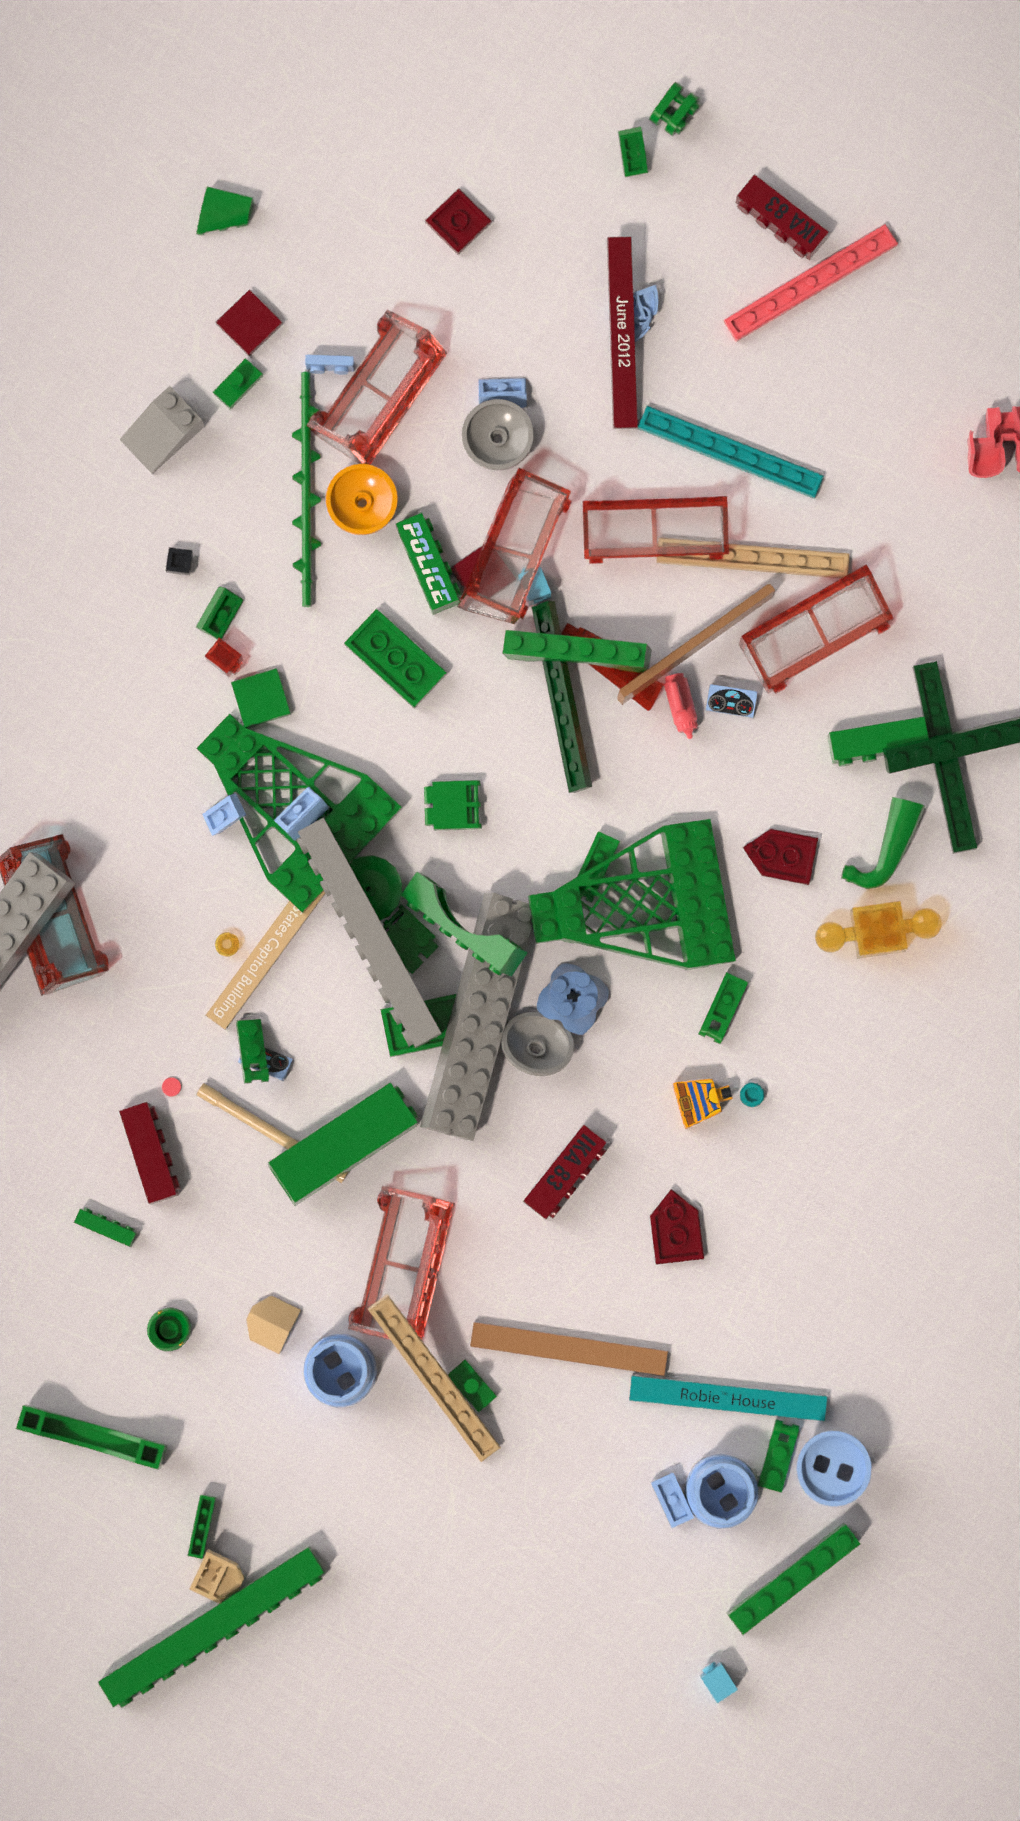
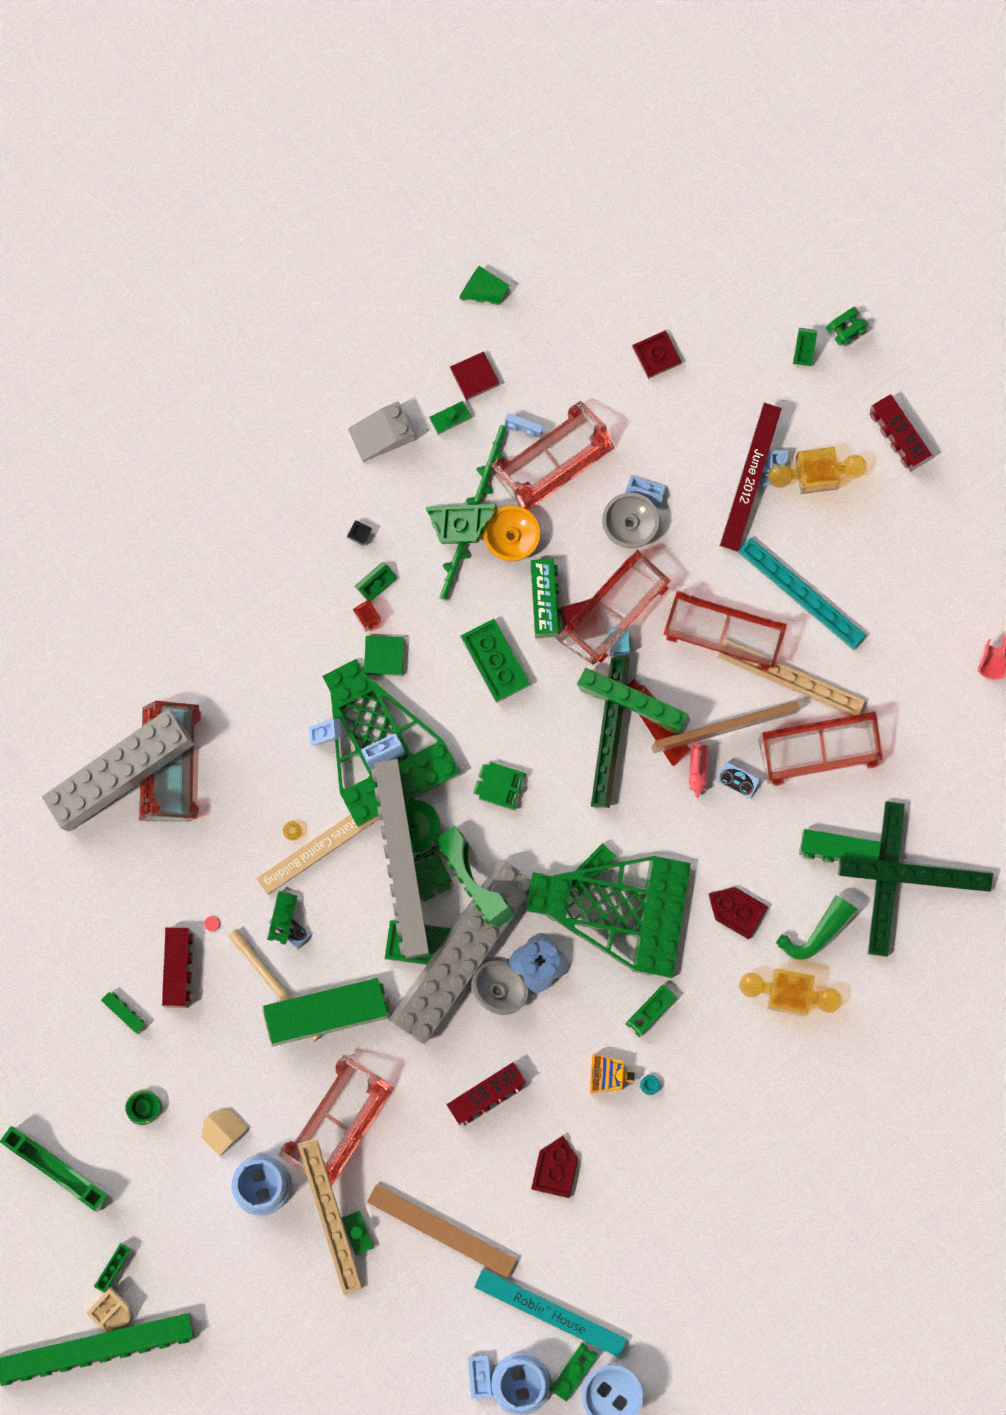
camera: 15 degrees right, 5 degrees down
(296, 507) = (461, 523): none -> wing
(699, 297) = (817, 470): none -> clear yellow brick
(810, 282) = (905, 488): coral tile -> none

